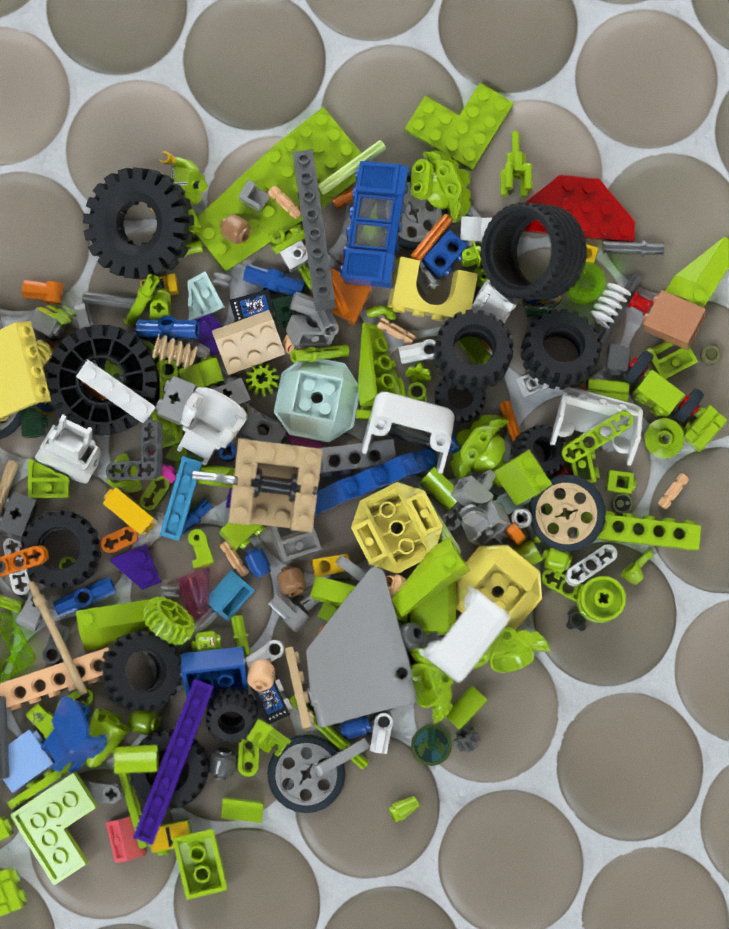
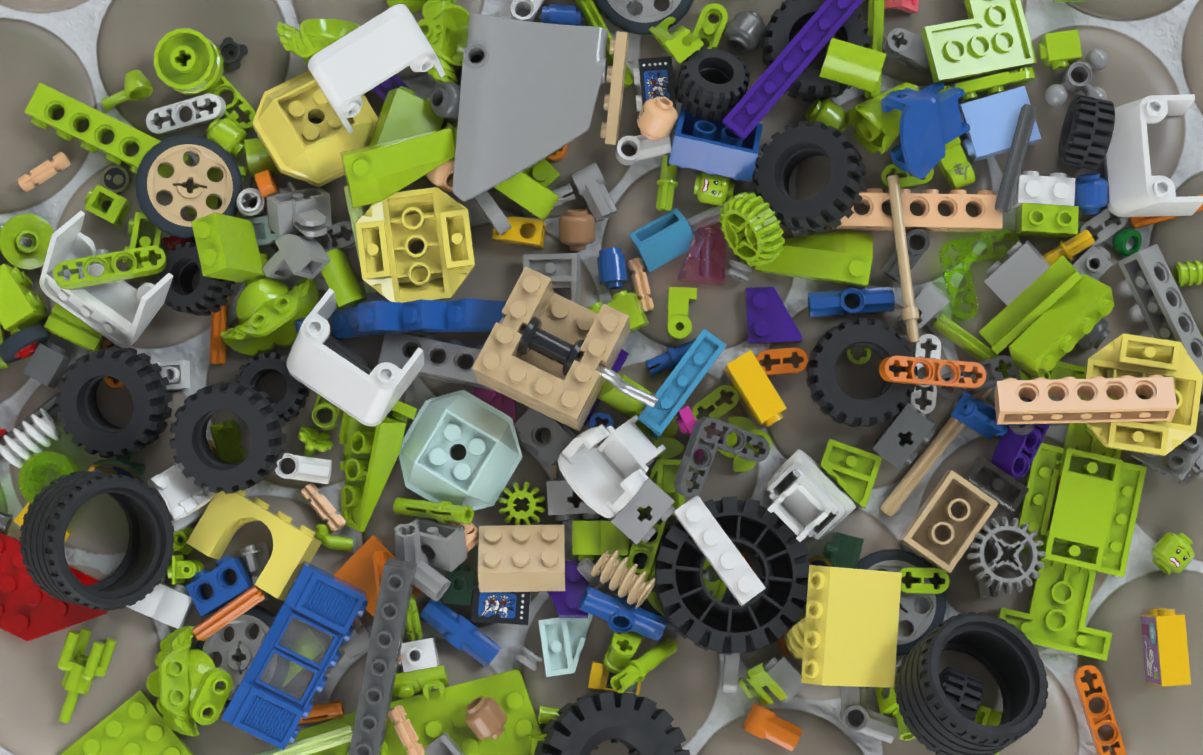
camera: 160 degrees left, 0 degrees up
(107, 300) = (688, 684): light grey axle -> none

